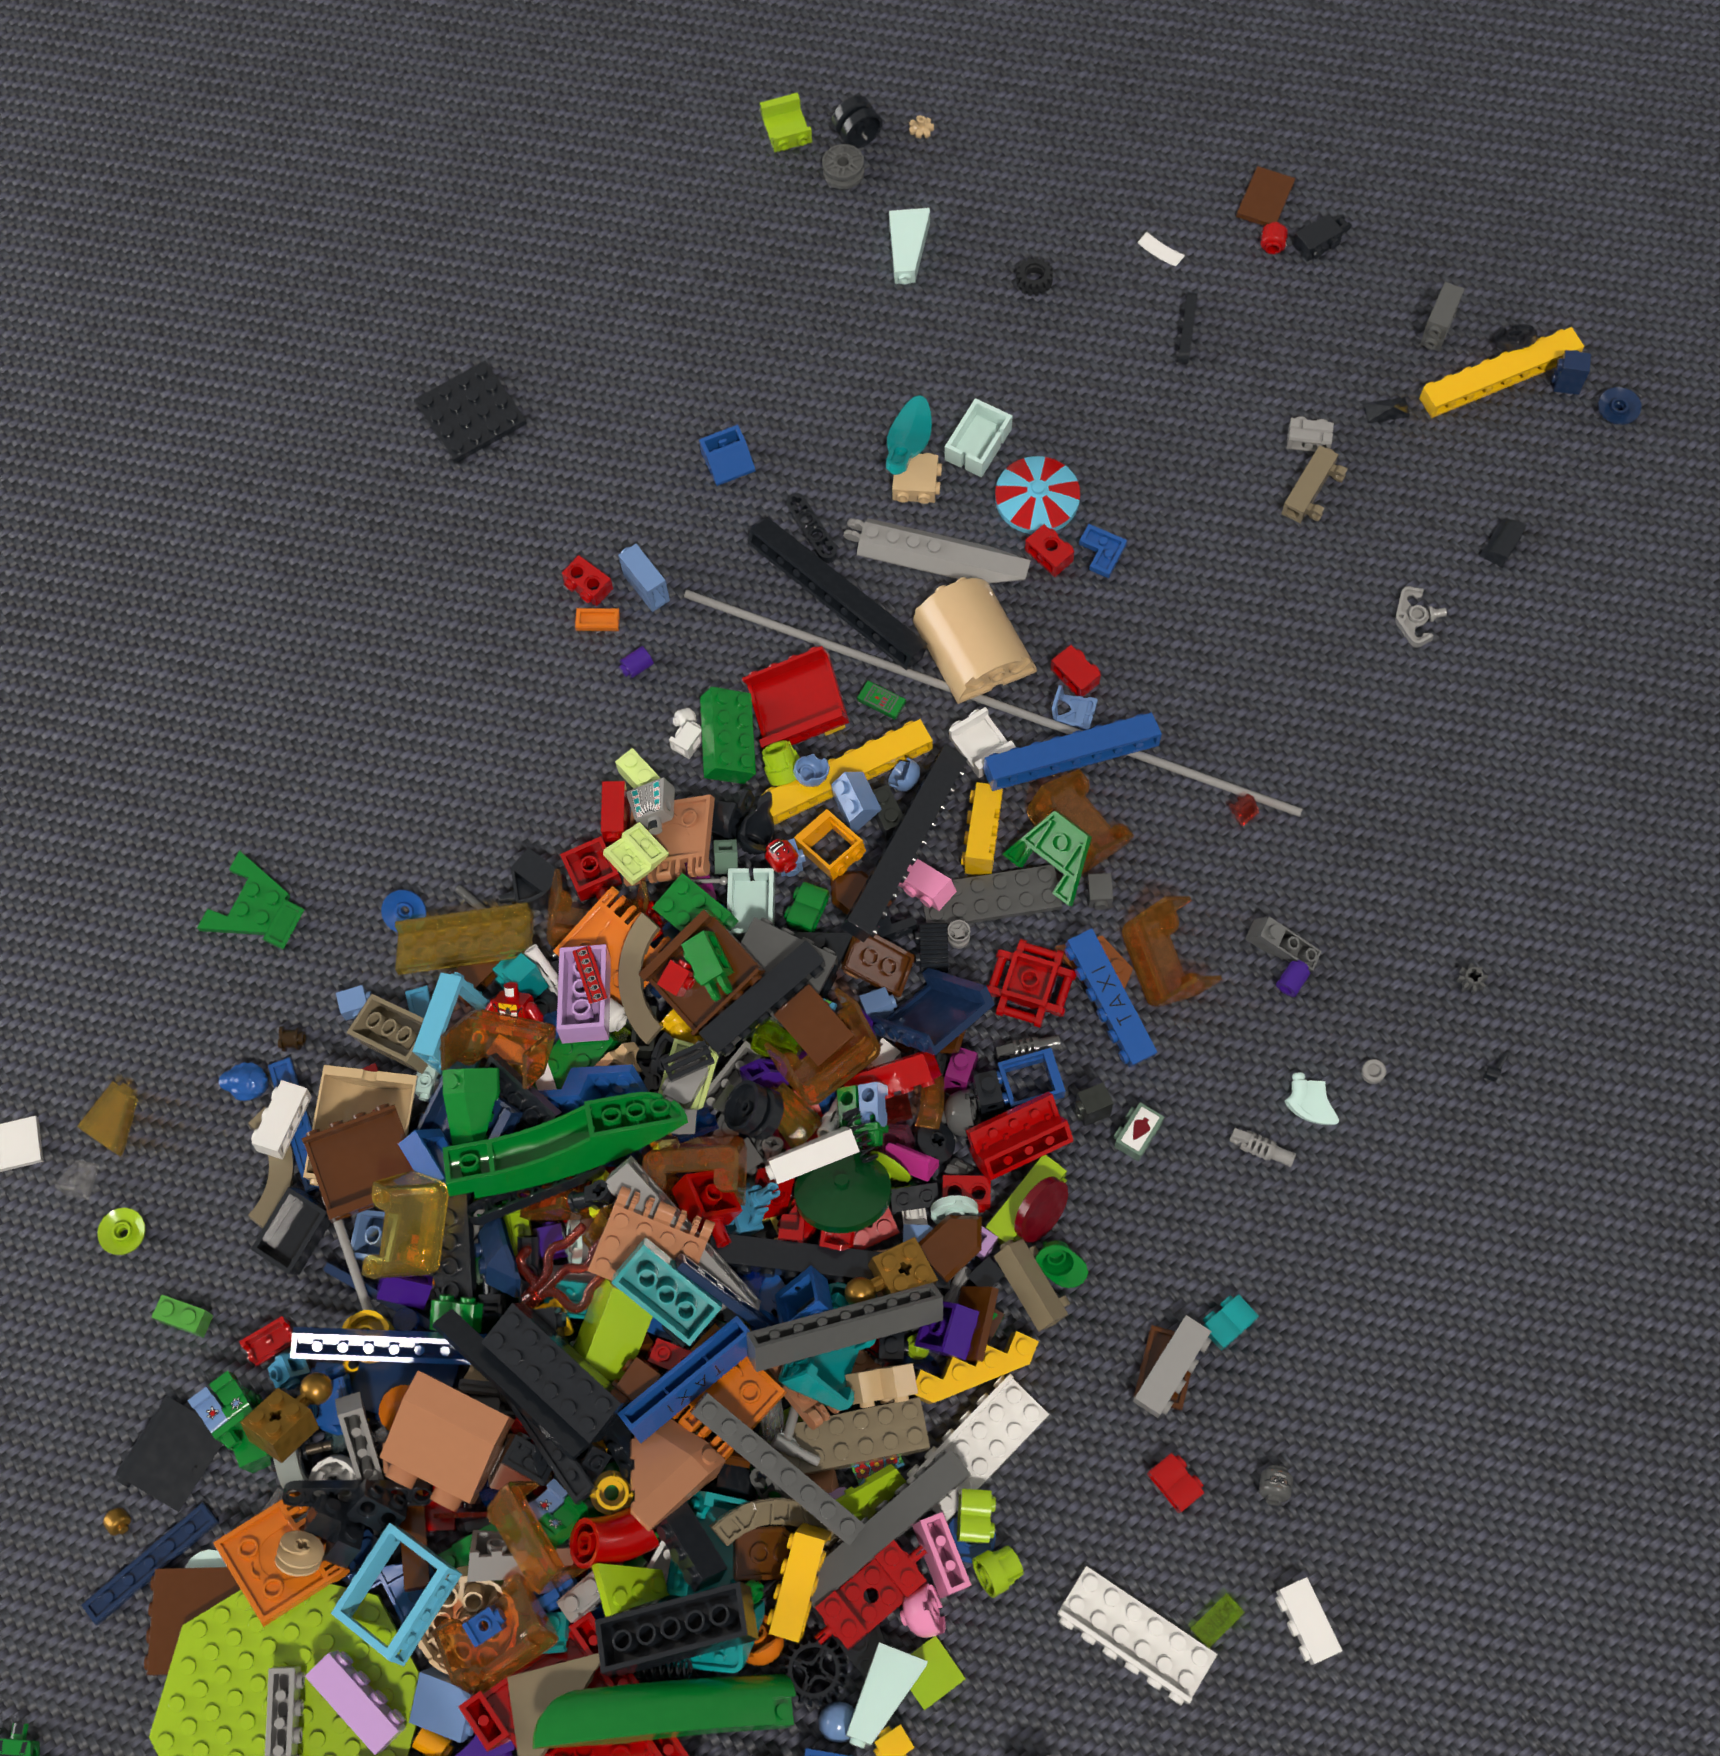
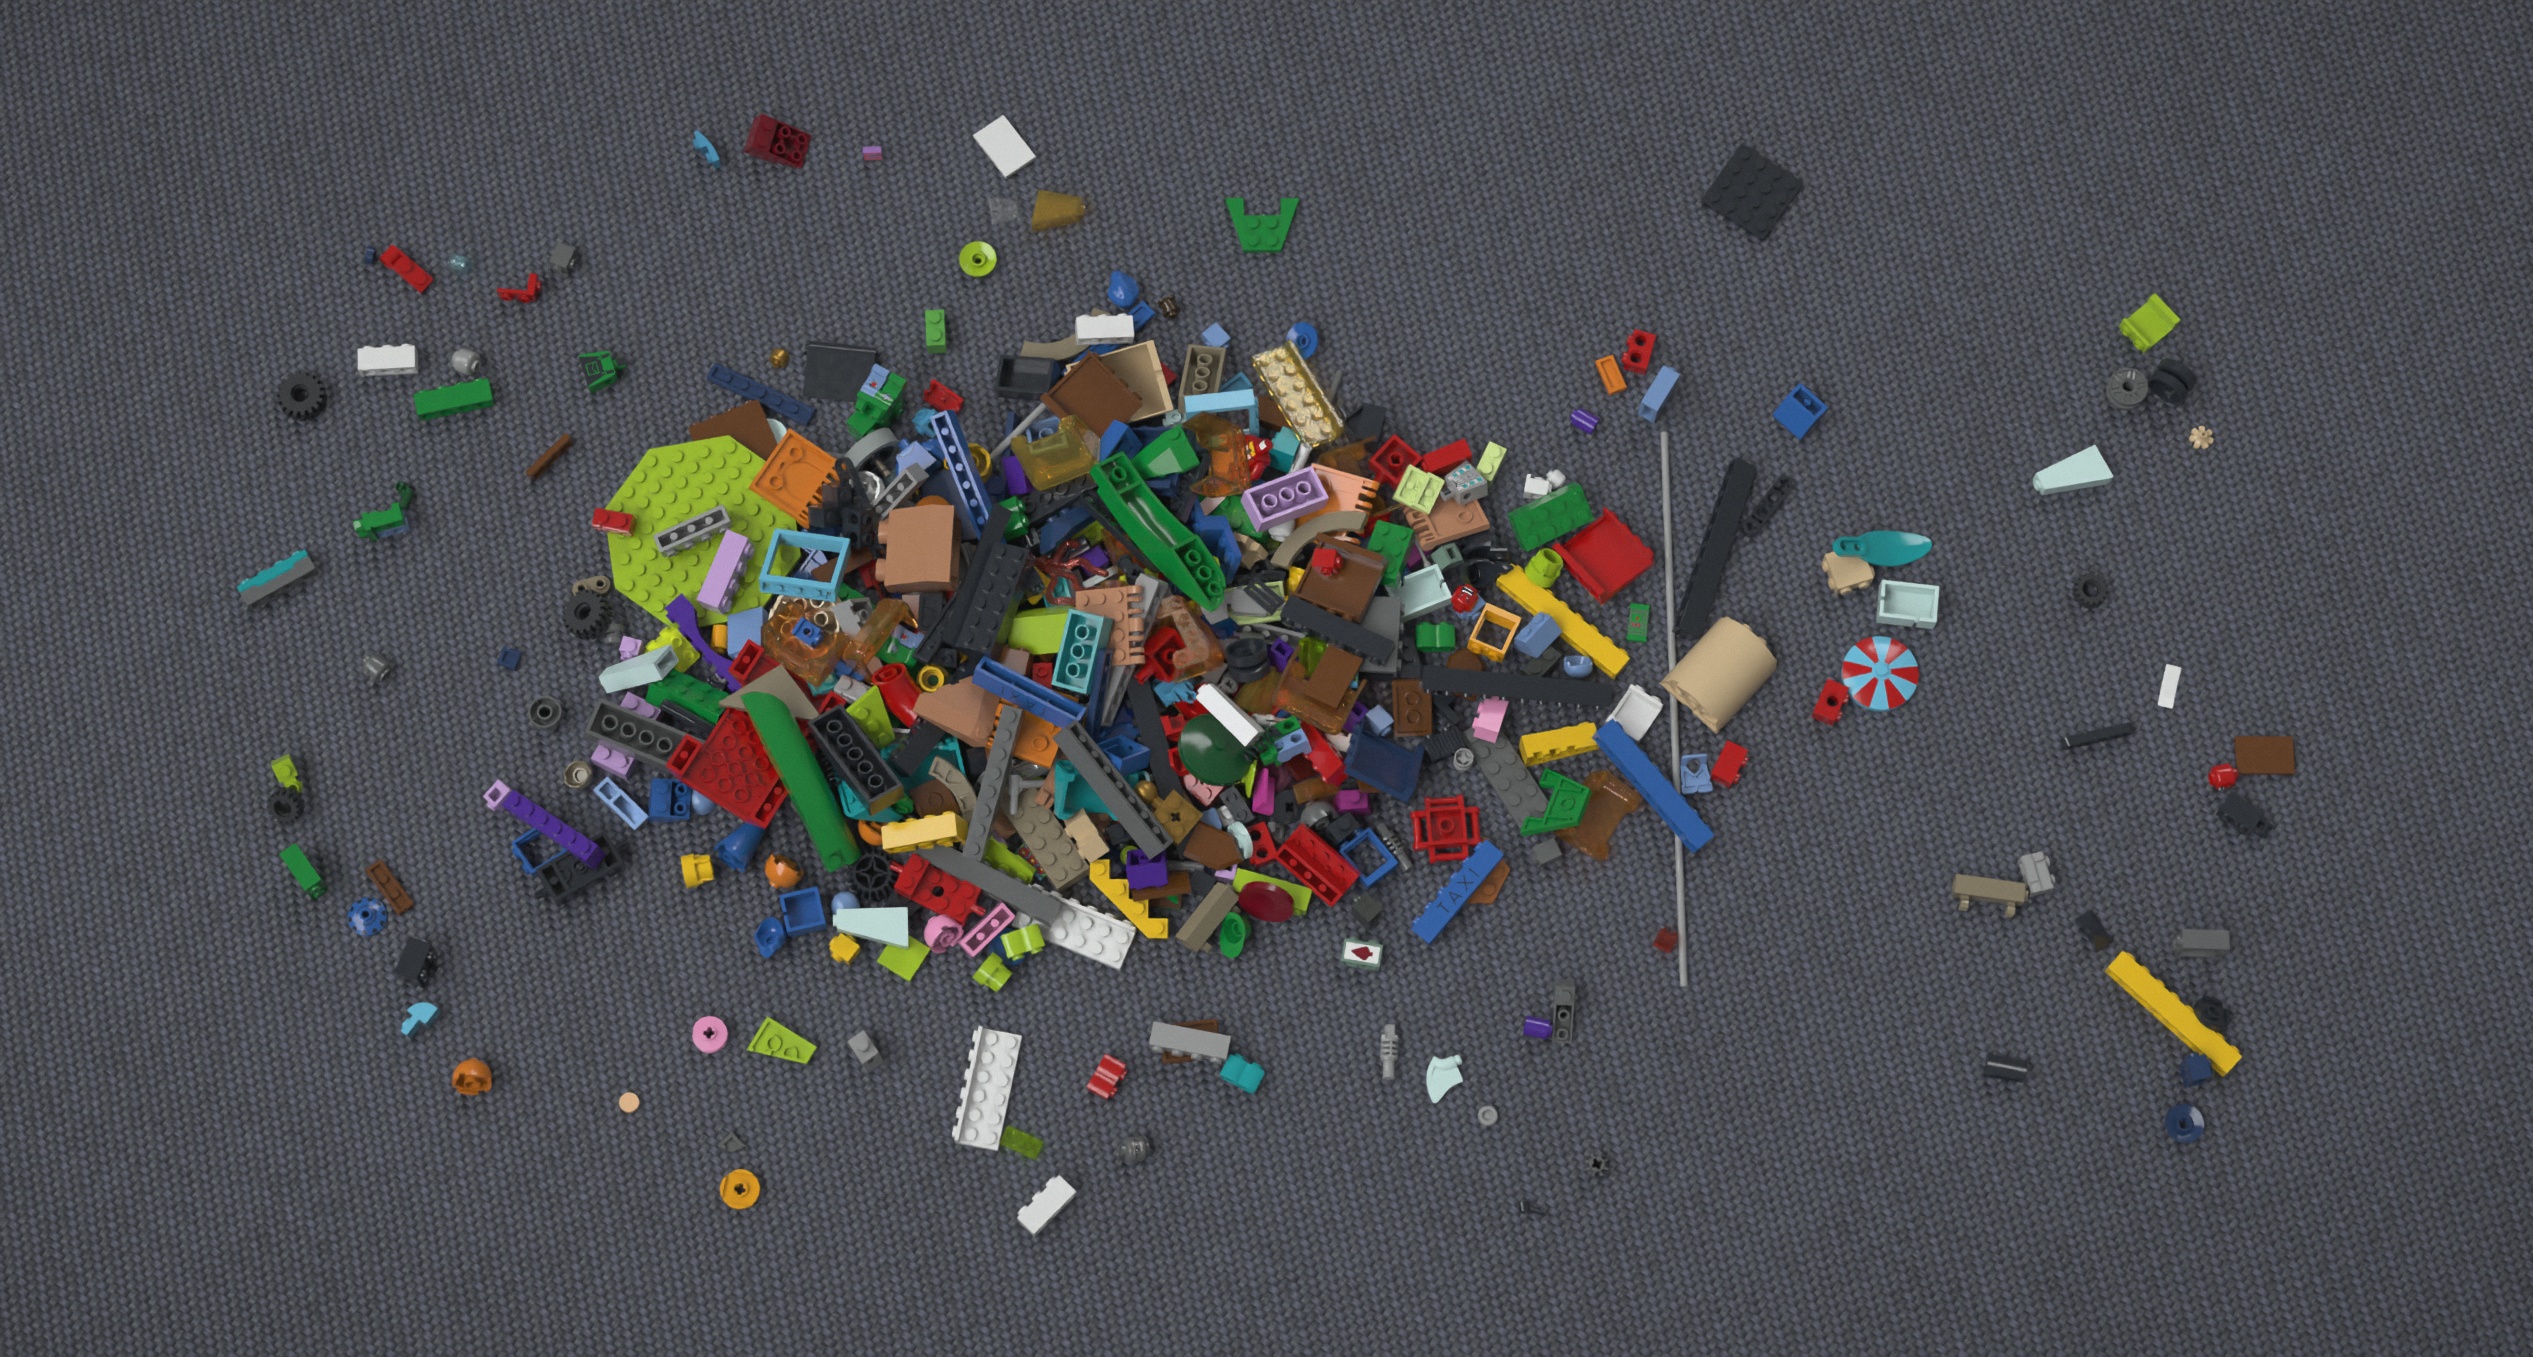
camera: 60 degrees right, 5 degrees up
(283, 924) = (1255, 258): green tile -> none
(284, 1422) = (885, 435): pearl gold brick -> none
(299, 1553) = (805, 488): tan piece -> none
(589, 974) = (1298, 496): red sticker -> none
(708, 963) = (1345, 579): green hinge -> none
(811, 770) = (1544, 591): medium blue hair -> none
(934, 552) = (1789, 613): light grey hinge -> none
(1108, 549) = (1852, 750): blue plate -> none
(1156, 958) = (1511, 917): clear orange windscreen -> none
(1410, 617) = (1901, 1016): light grey piece -> none

